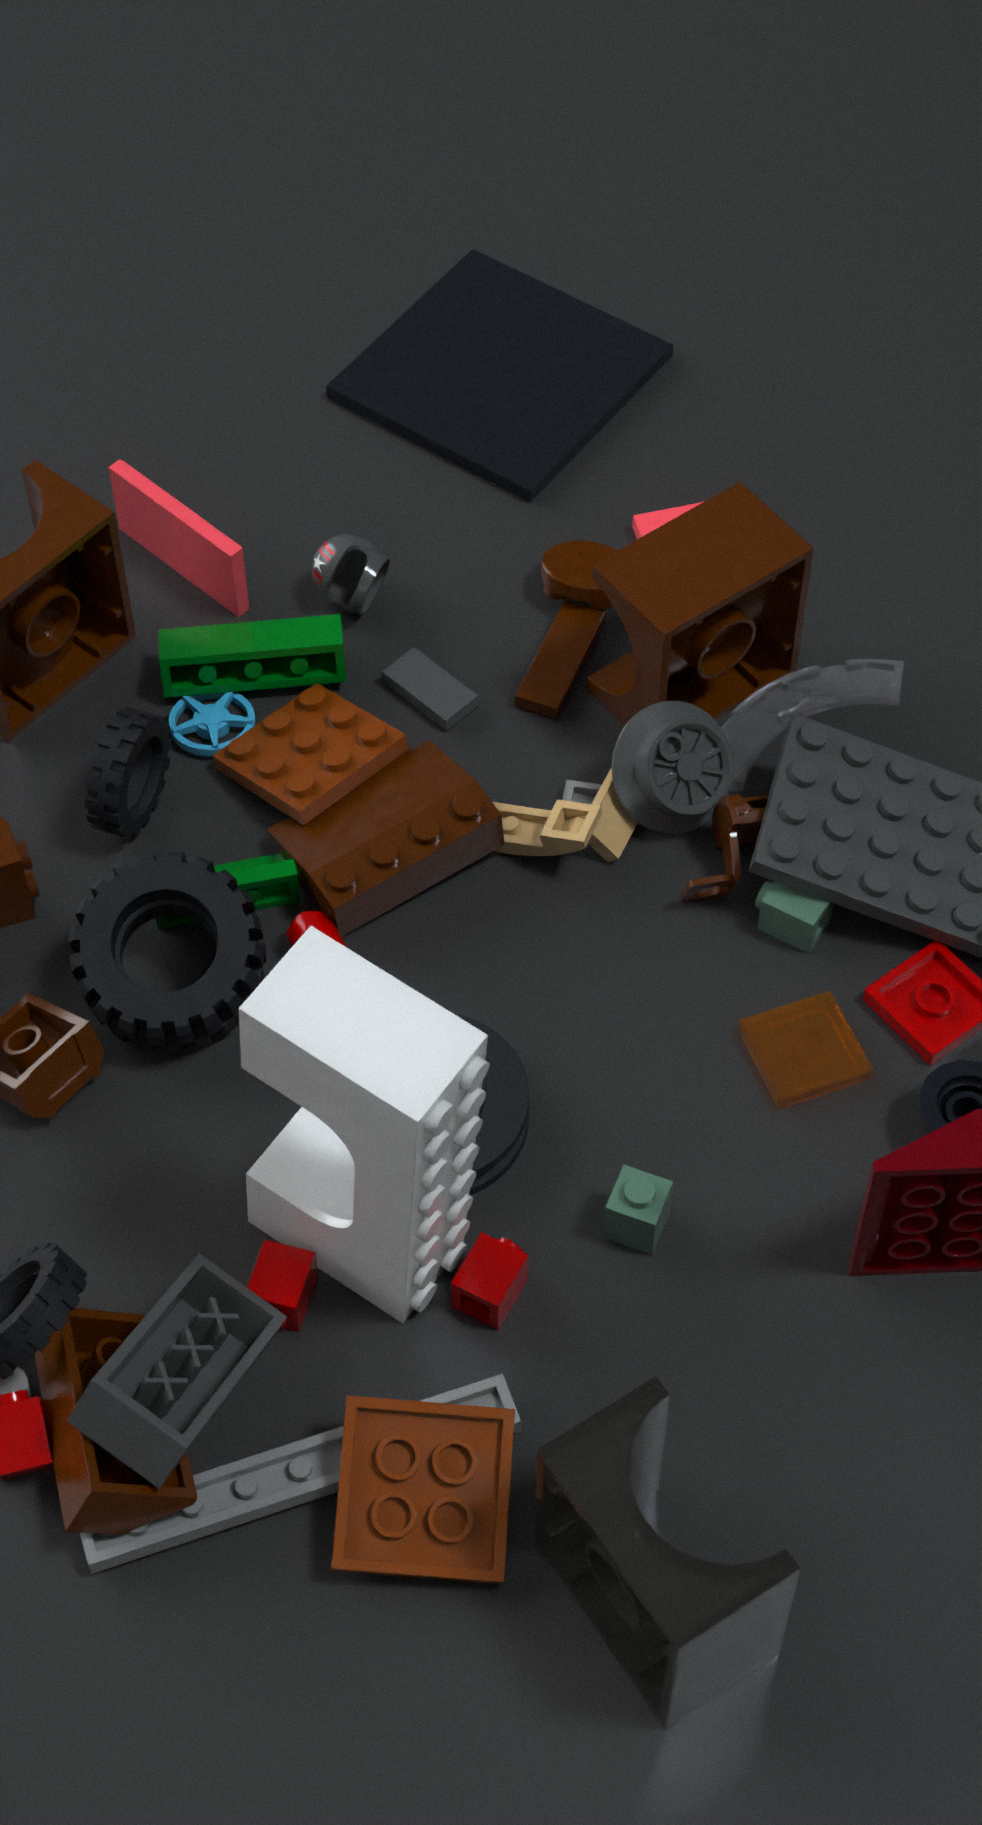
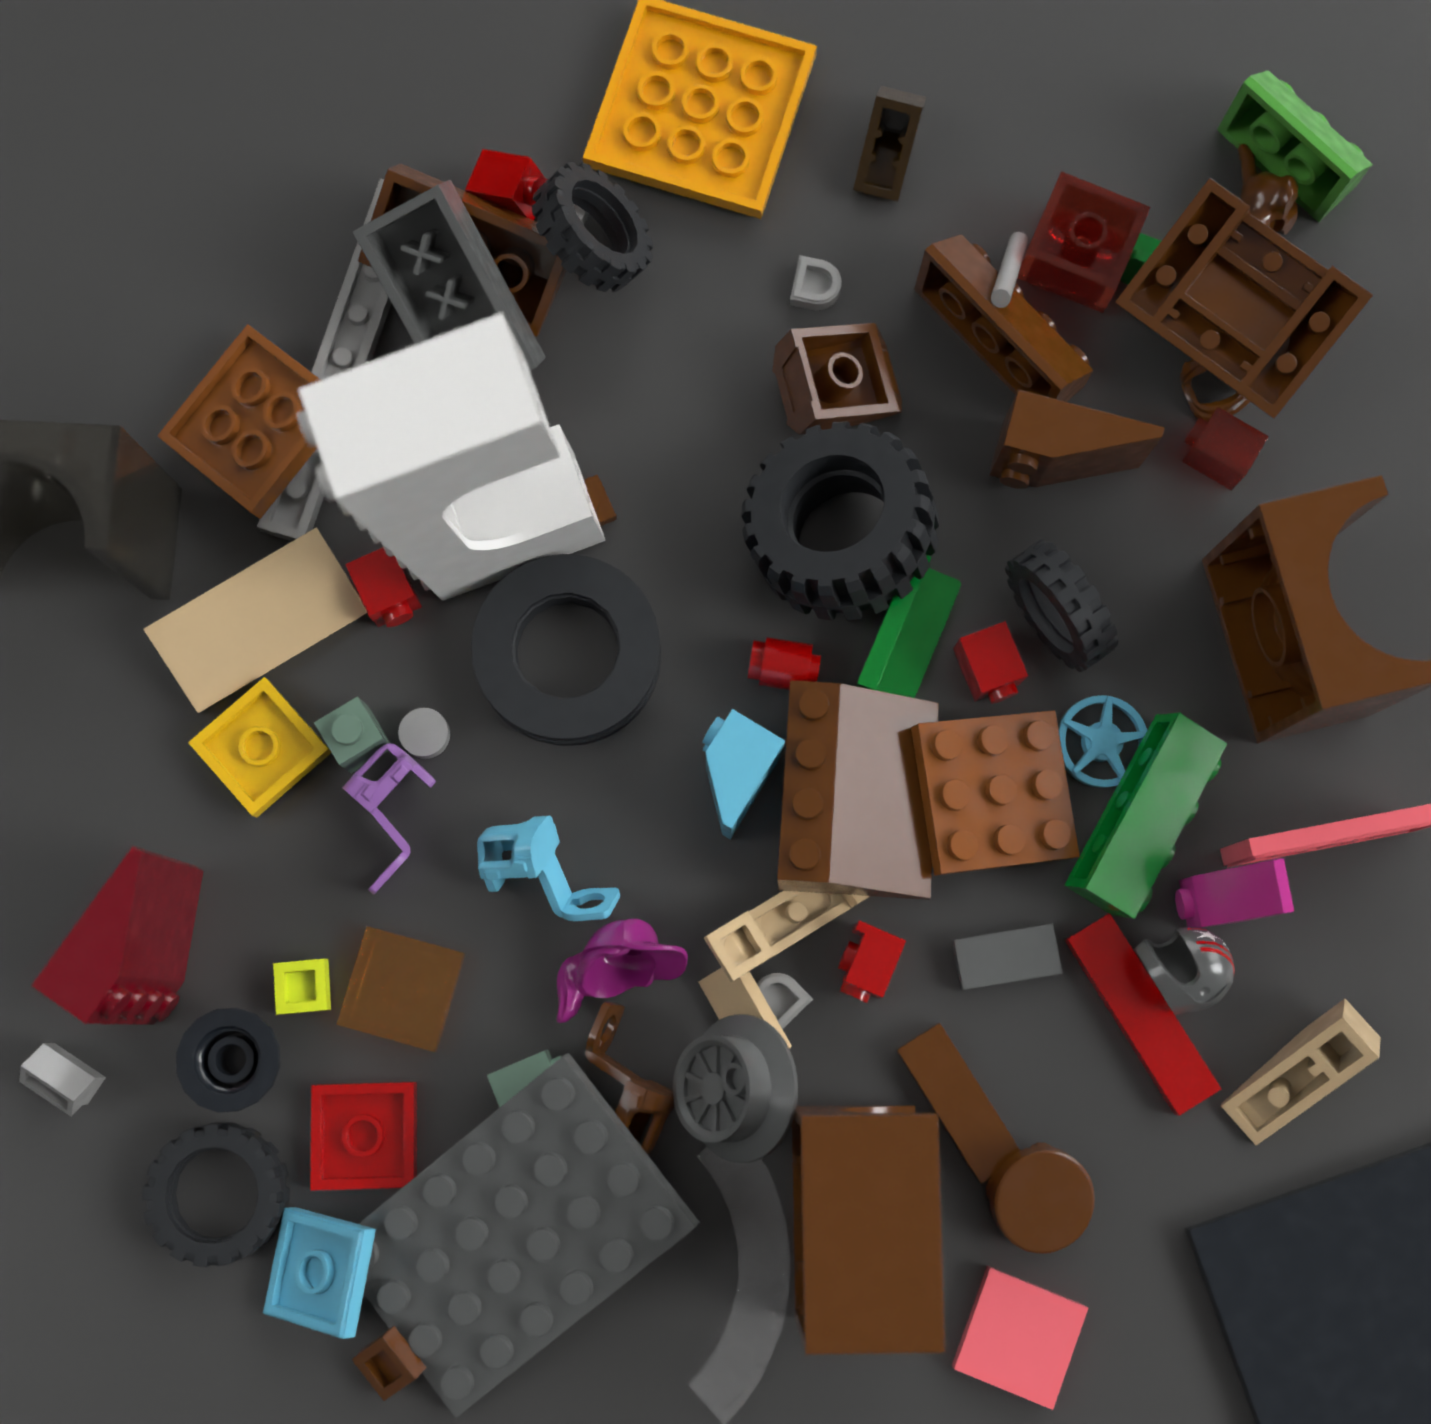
camera: 125 degrees right, 25 degrees up
(205, 814) = (991, 663): none -> red brick
(274, 560) = (1235, 894): none -> dark pink slope
(363, 483) = (1304, 1072): none -> tan slope
(401, 594) = (1142, 1014): none -> red tile
(438, 906) = (738, 765): none -> medium azure slope
(508, 756) = (870, 962): none -> red brick
(590, 1172) = (424, 733): none -> light grey tile
(599, 1357) = (256, 620): none -> tan tile
(607, 1015) = (532, 857): none -> medium azure piece
(650, 916) = (614, 961): none -> magenta hair
(681, 1138) = (372, 793): none -> medium lavender piece
(709, 1283) = (260, 747): none -> yellow plate
(868, 1113) = (302, 986): none -> neon yellow plate

